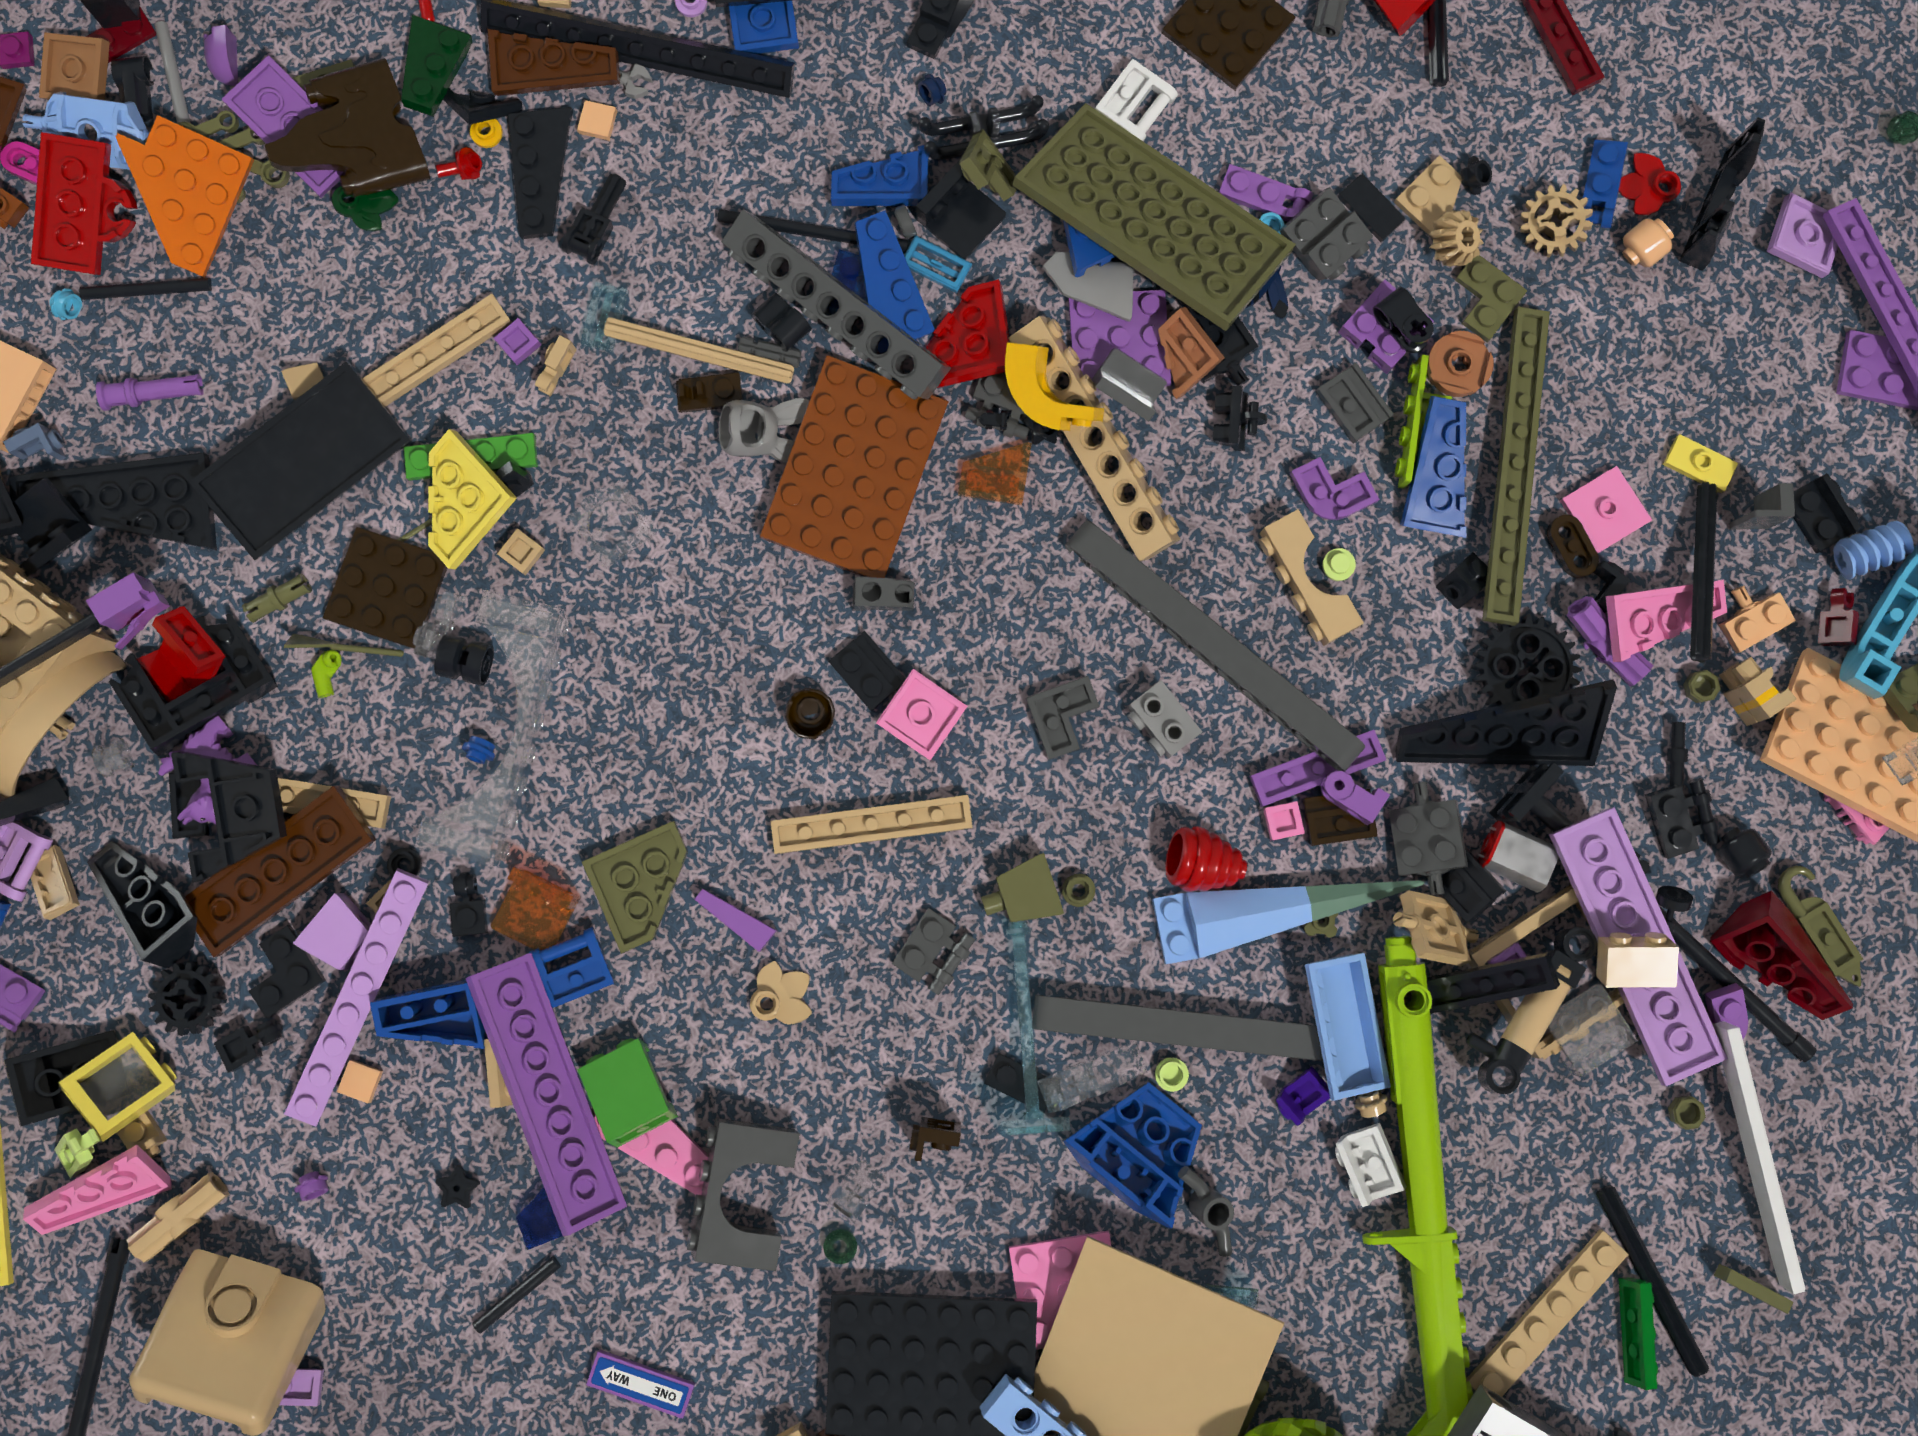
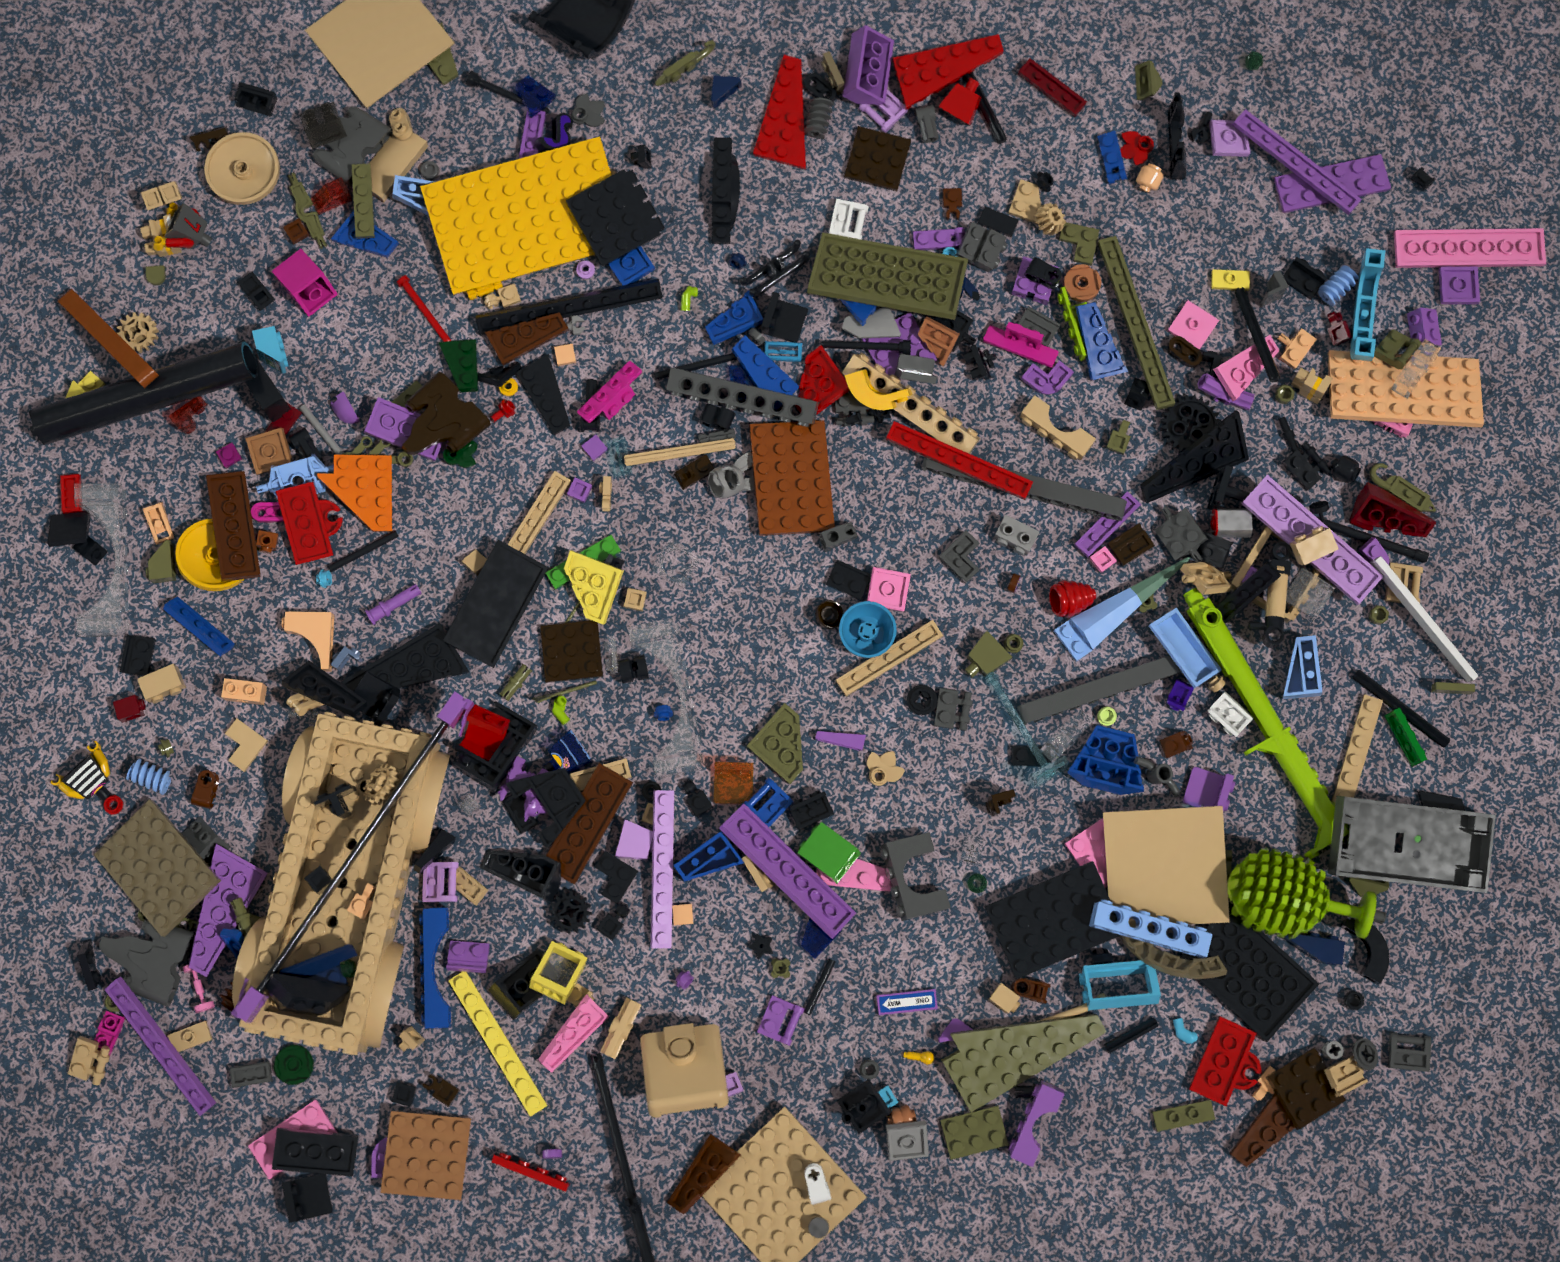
camera: 25 degrees left, 5 degrees down
(76, 1150) = (552, 1015): yellowish green plate -> none
(300, 747) = (567, 753): none -> clear blue torso
(422, 1312) = (774, 1017): none -> medium lavender plate
(461, 1242) = (780, 963): none -> olive plate
(572, 285) = (594, 447): none -> medium lavender tile
(634, 1011) = (811, 810): none -> black bracket
(635, 215) = (612, 395): none -> dark pink bracket
(826, 111) = (686, 296): none -> lime arm
(829, 759) = (876, 623): none -> dark azure piece
(882, 901) = (926, 692): none -> black gear
(985, 165) = (789, 289): olive plate -> none
(997, 475) = (868, 448): clear orange wing -> none
(1124, 794) = (1015, 579): none -> reddish brown tile
(1125, 339) = (903, 347): none -> black piece
(1128, 561) = (959, 460): none -> red plate
(1262, 1171) = (1176, 744): none -> reddish brown bracket
(1279, 1270) = (1208, 789): none -> medium lavender bracket
(1315, 142) = (952, 199): none -> reddish brown plate
(1318, 416) = (1021, 342): none -> dark pink bracket
(1338, 564) = (1068, 414): yellowish green plate -> none
(1343, 792) = (1132, 531): medium lavender leg -> none
(1400, 641) = (1118, 439): none -> olive plate
(1523, 1148) = (1304, 670): none -> light blue wedge
(1569, 218) = (1103, 182): tan gear -> none
(1717, 85) = (1147, 80): none -> olive slope
(1759, 1062) = (1402, 572): none -> tan plate
(1769, 201) = (1204, 124): none -> black bar

